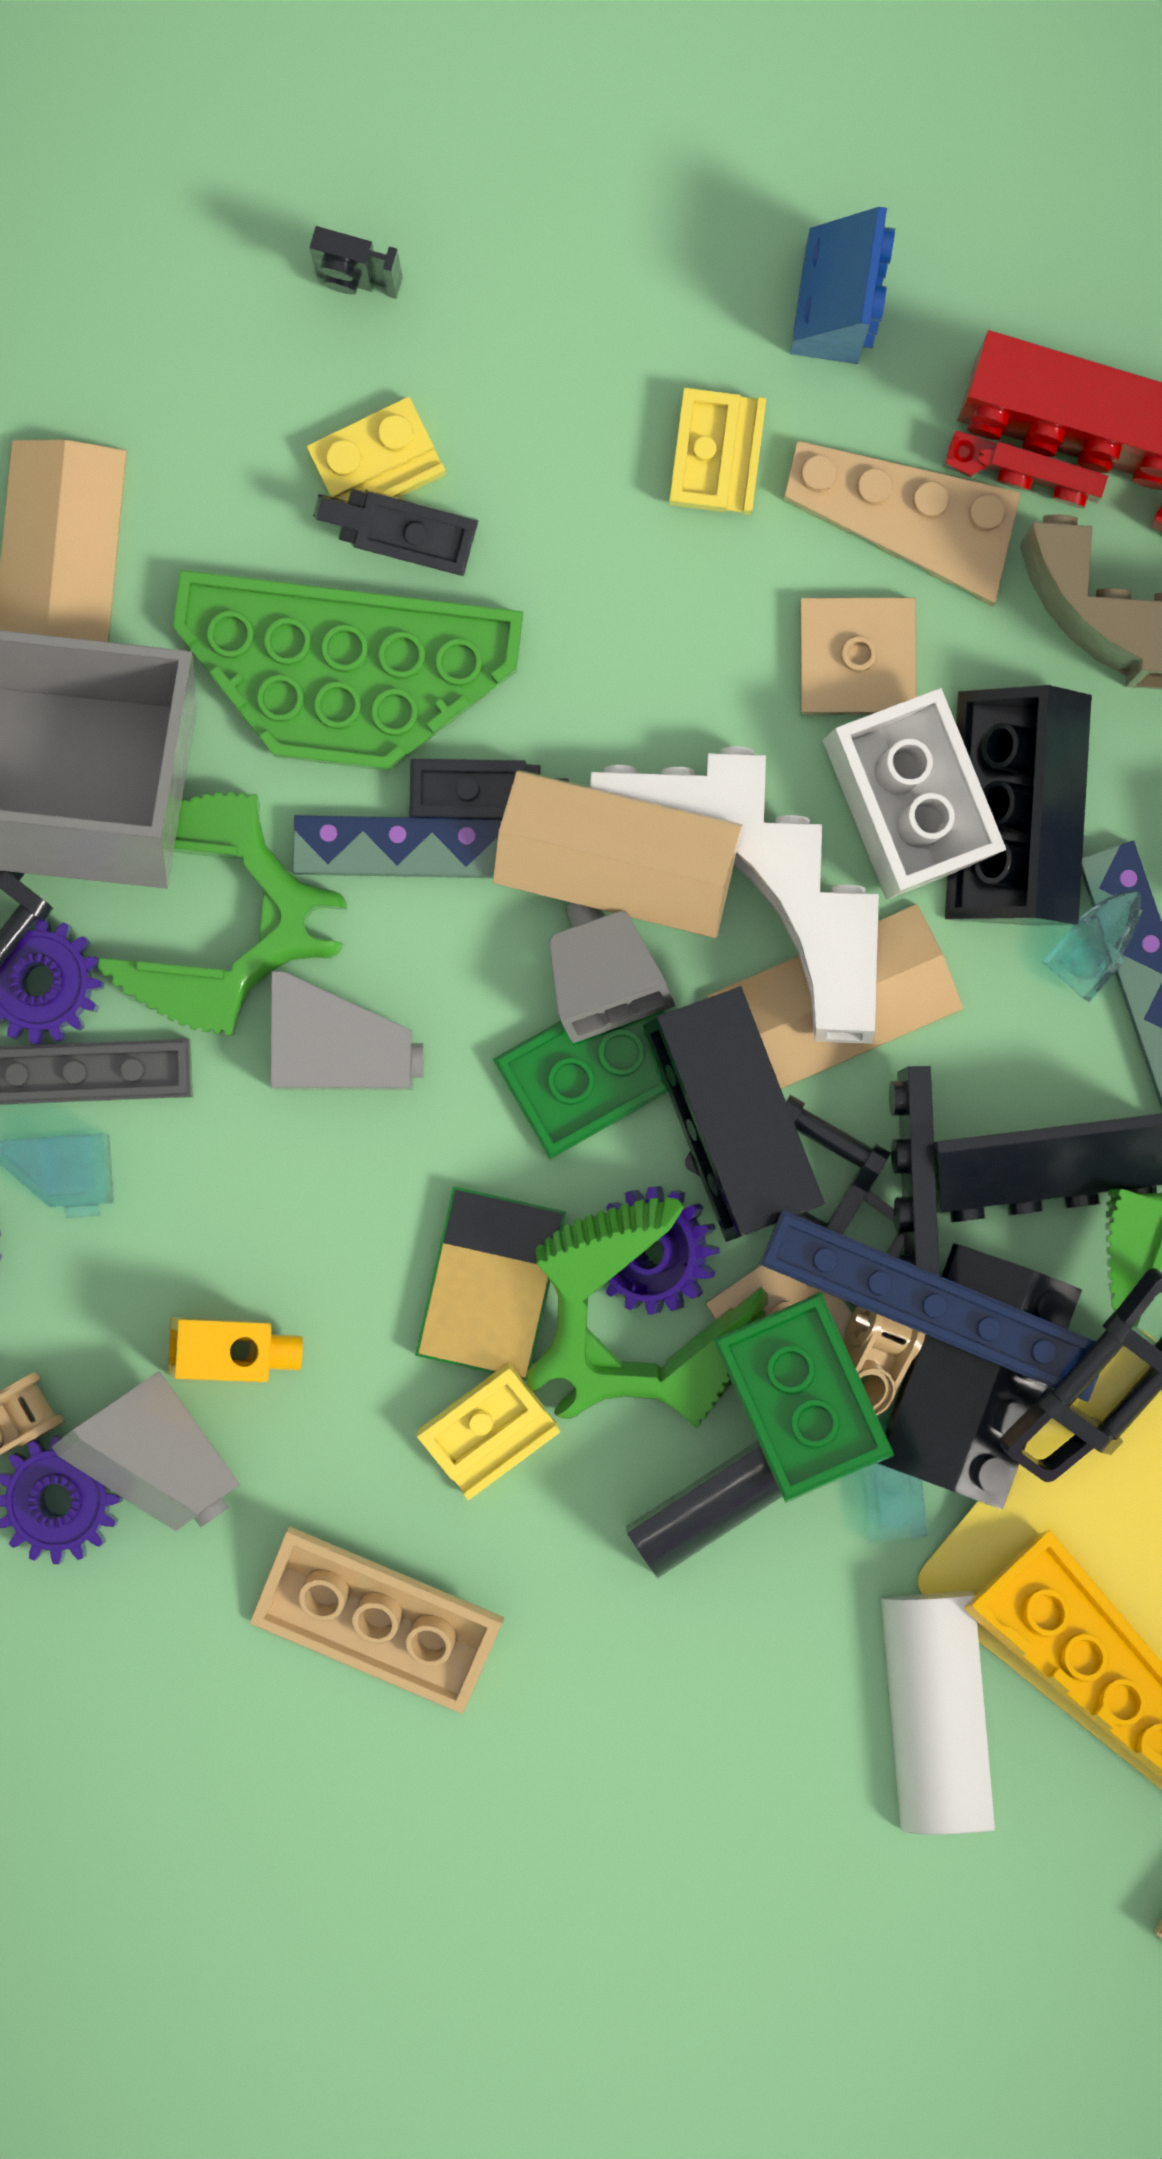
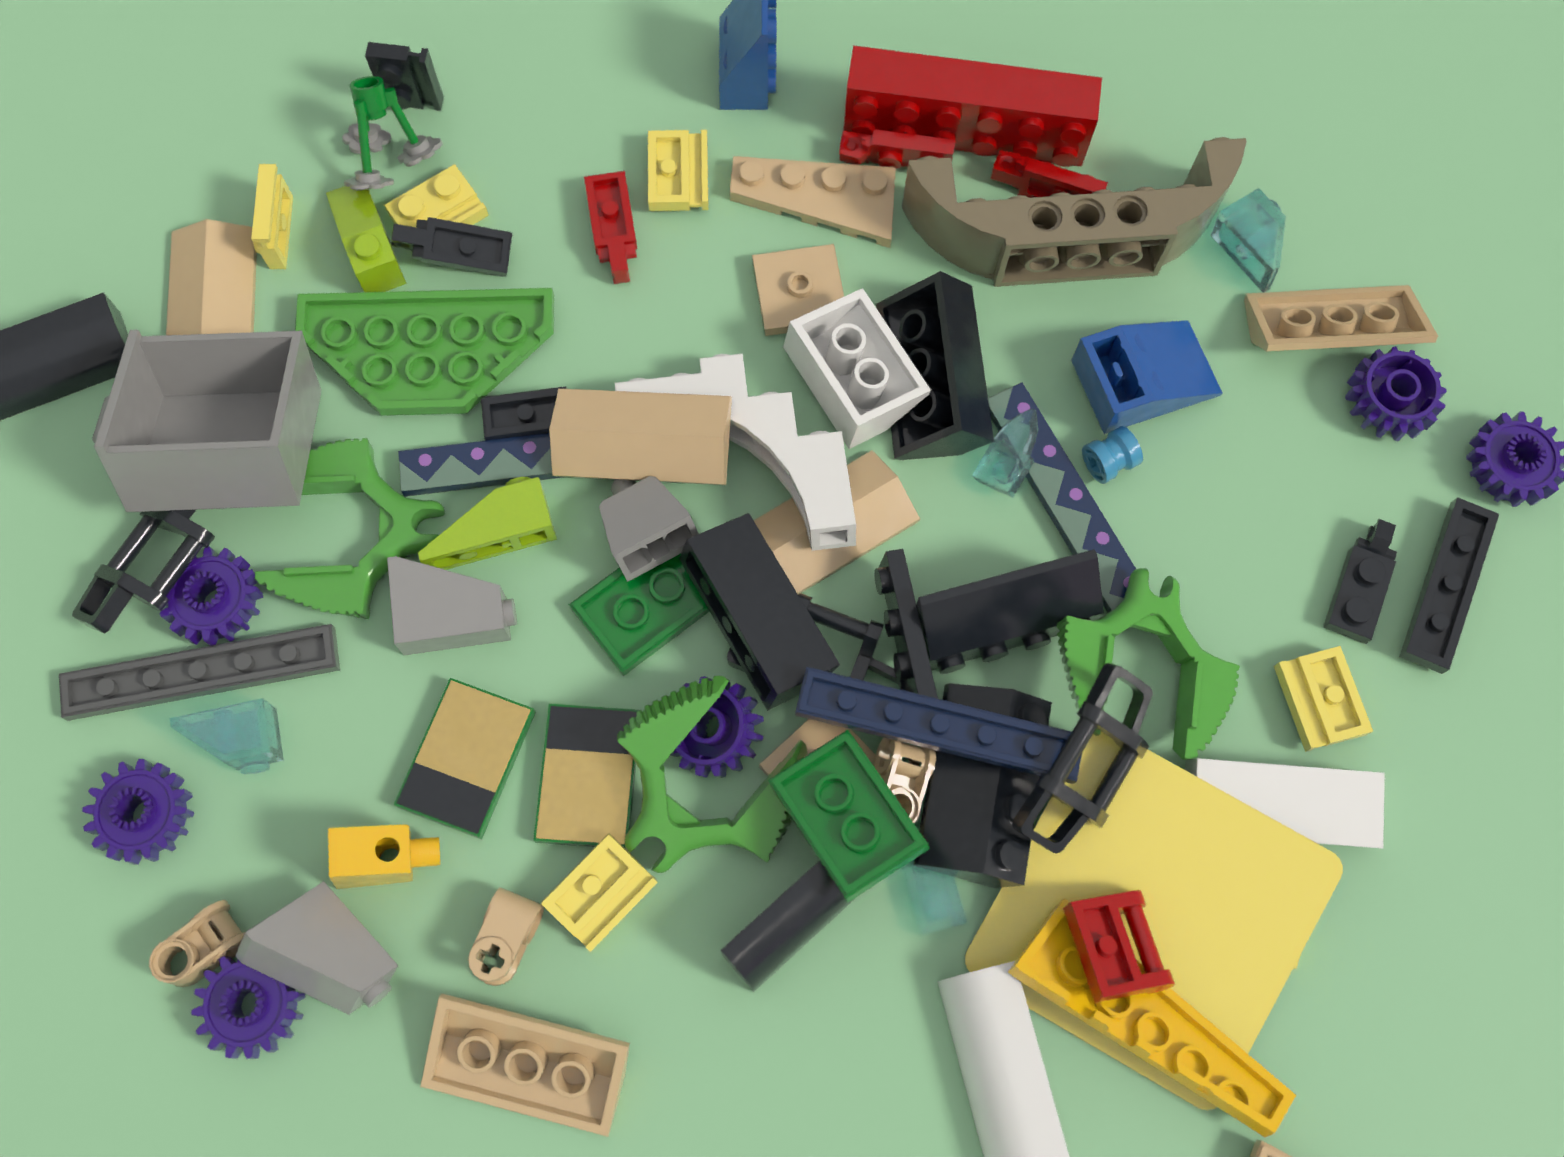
camera: 10 degrees left, 15 degrees down
(156, 430) = (272, 217): none -> light yellow plate
(274, 487) = (365, 239): none -> lime slope
(291, 334) = (370, 103): none -> plant
(341, 1237) = (465, 758): none -> tile
(374, 1458) = (507, 928): none -> tan piece
(421, 937) = (498, 524): none -> lime slope
(616, 517) = (612, 222): none -> red hinge
(1085, 1599) = (1107, 949): none -> red plate

